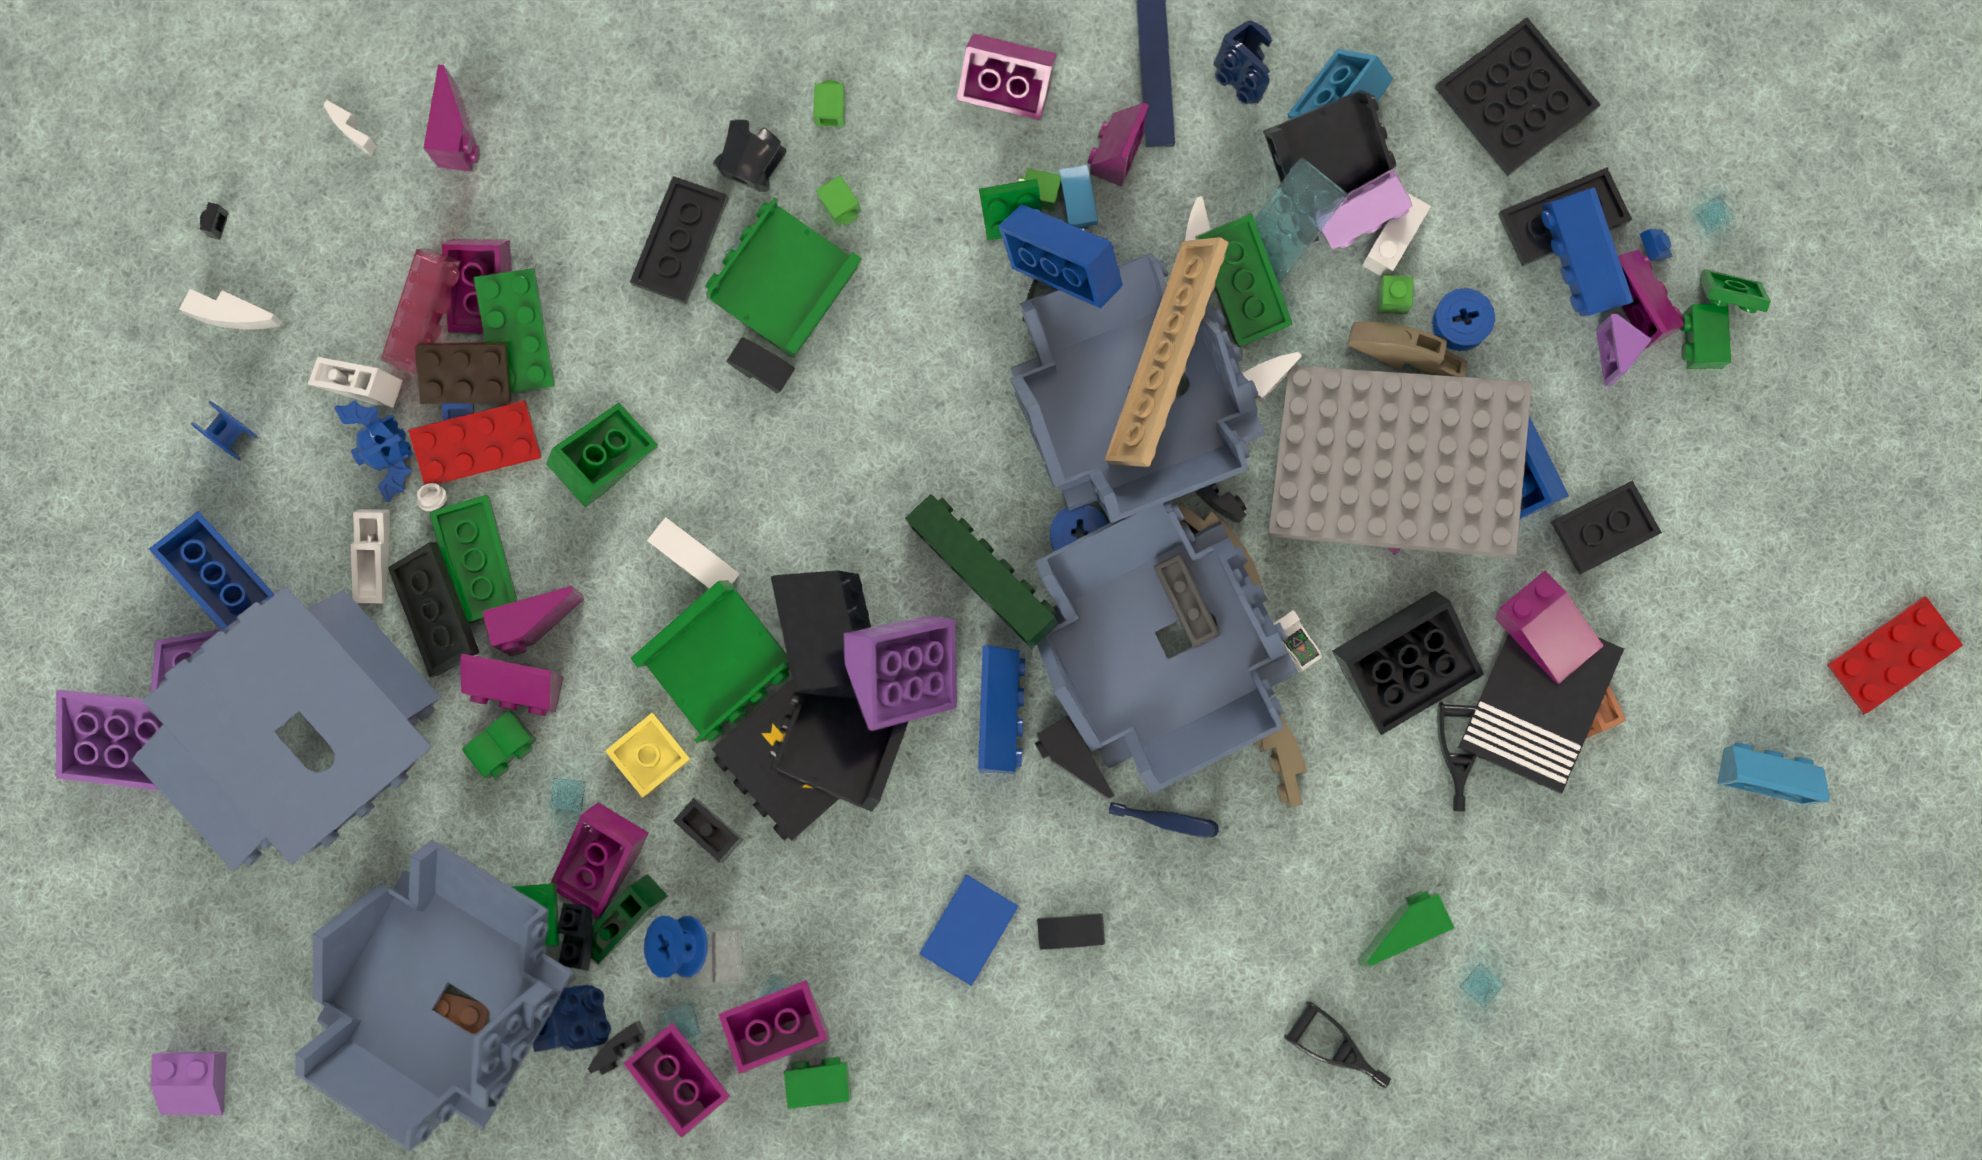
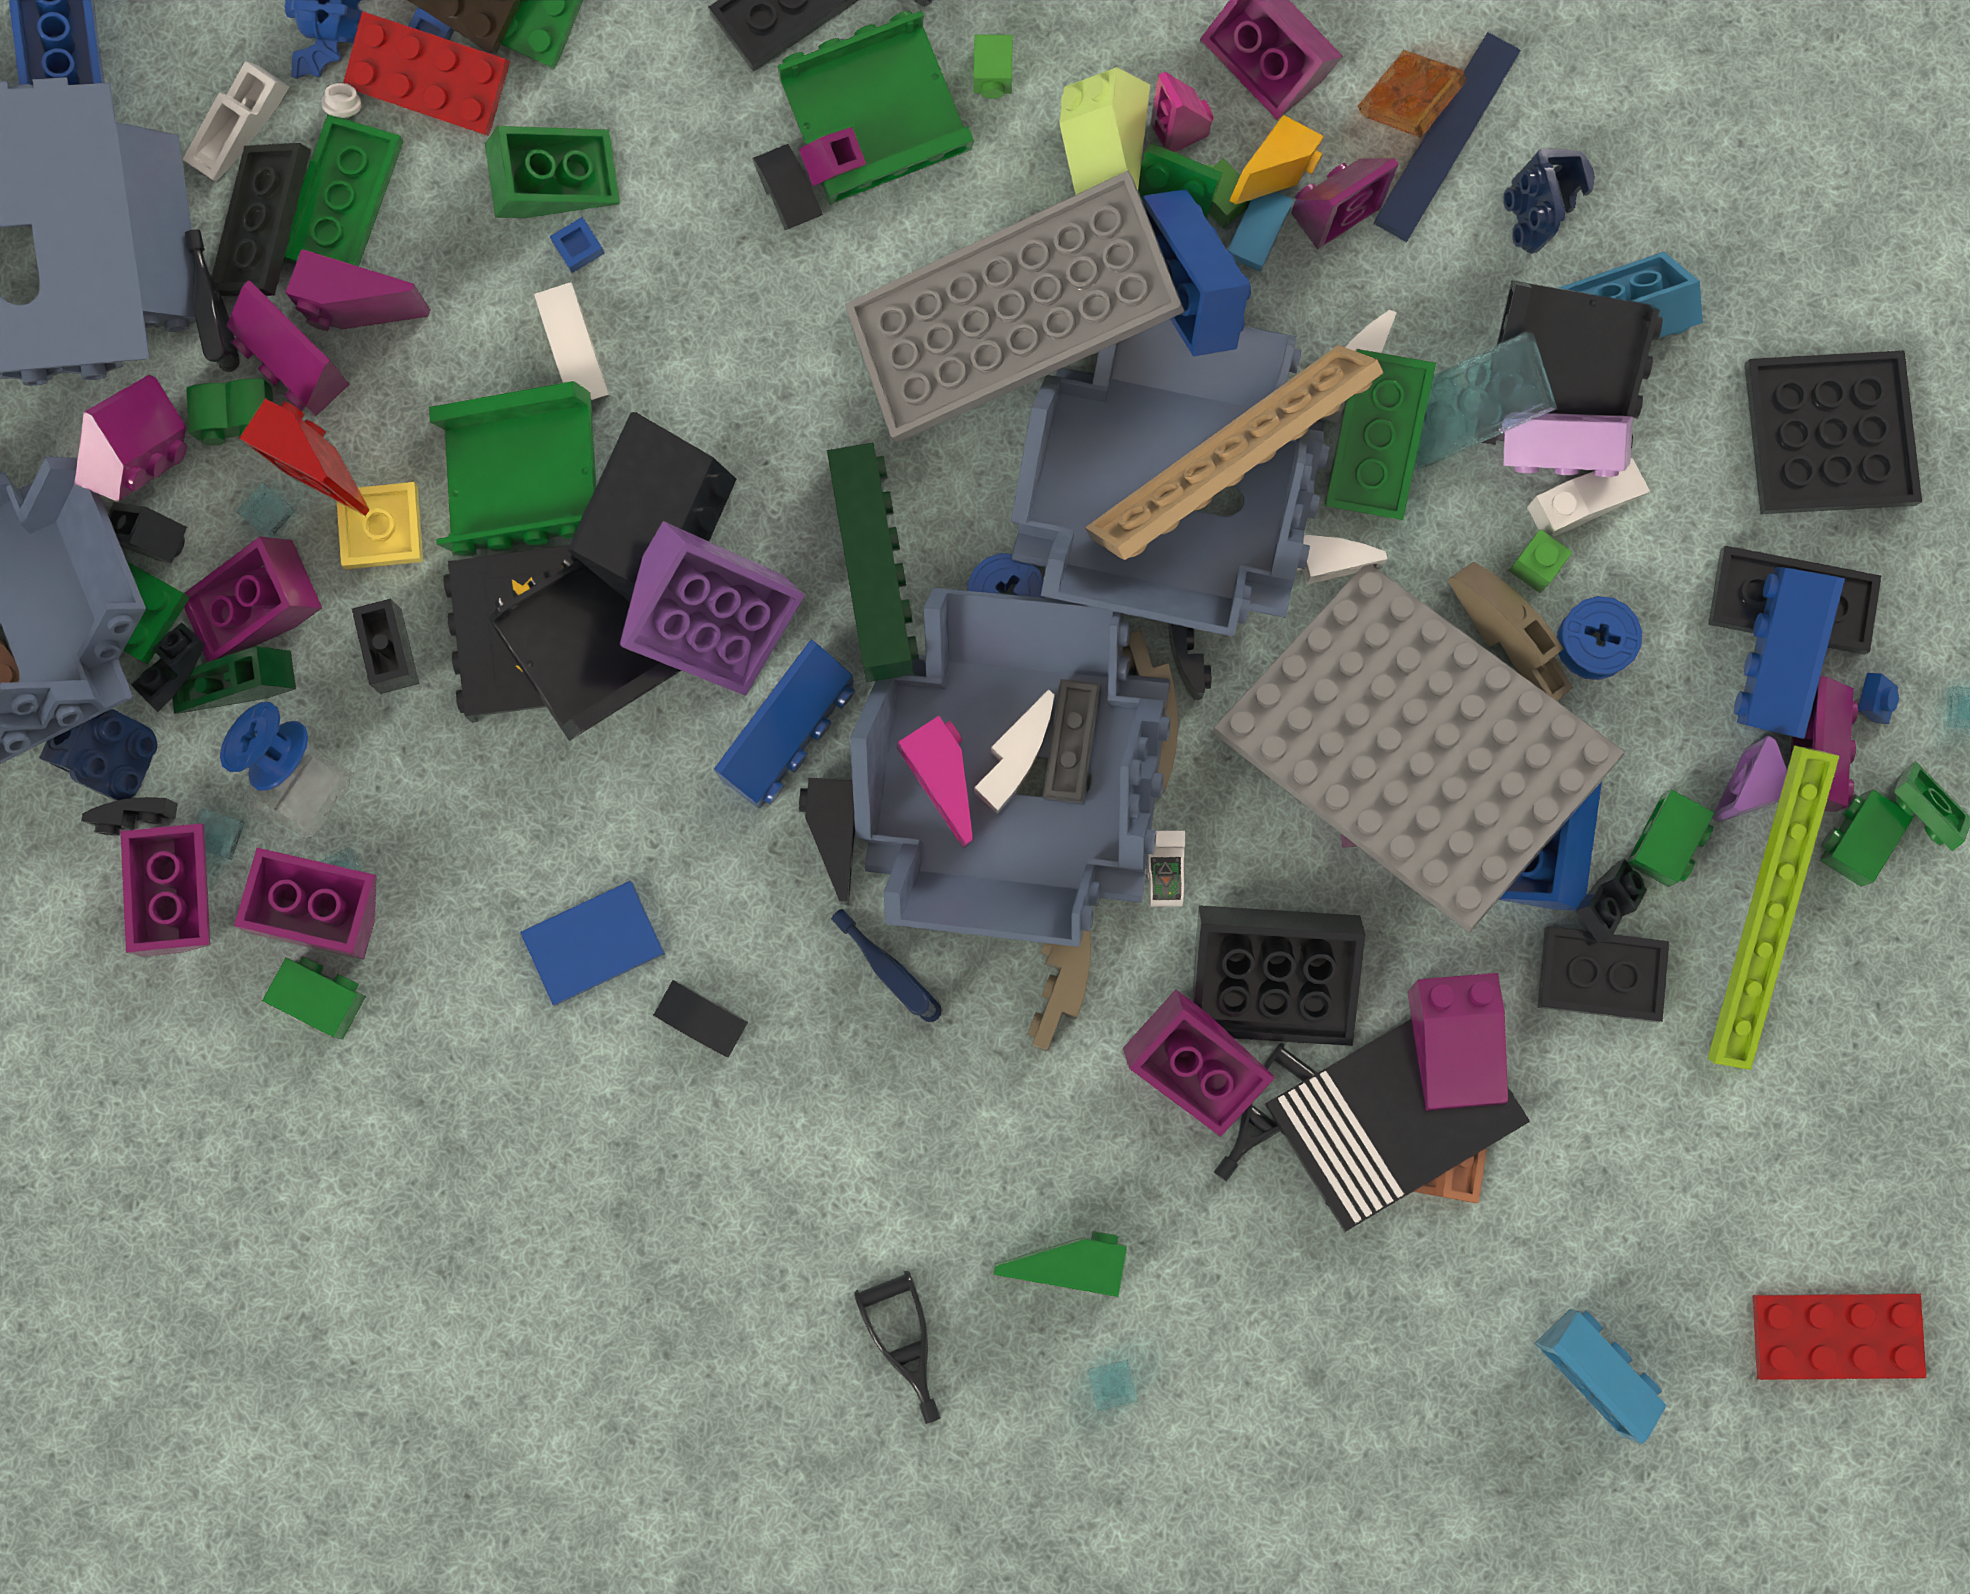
camera: 30 degrees right, 0 degrees up
(442, 688) = (210, 311): none -> black piece
(455, 809) = (129, 440): none -> magenta slope
(501, 858) = (147, 531): none -> black slope
(565, 741) = (302, 452): none -> red slope
(650, 490) = (577, 244): none -> blue plate
(779, 327) = (832, 156): none -> magenta brick
(944, 203) = (1104, 127): none -> yellowish green slope
(963, 350) = (1014, 307): none -> light grey plate
(981, 158) = (1179, 114): none -> dark pink slope
(1064, 145) = (1279, 161): none -> yellow slope
(1116, 49) = (1412, 93): none -> clear orange plate
(1119, 674) = (938, 766): none -> dark pink slope
(1159, 632) = (1016, 754): none -> white slope
(1398, 750) = (1196, 1063): none -> magenta slope
(1580, 474) = (1610, 899): none -> black slope
(1591, 415) = (1671, 839): none -> green brick
(1683, 418) = (1773, 907): none -> lime plate

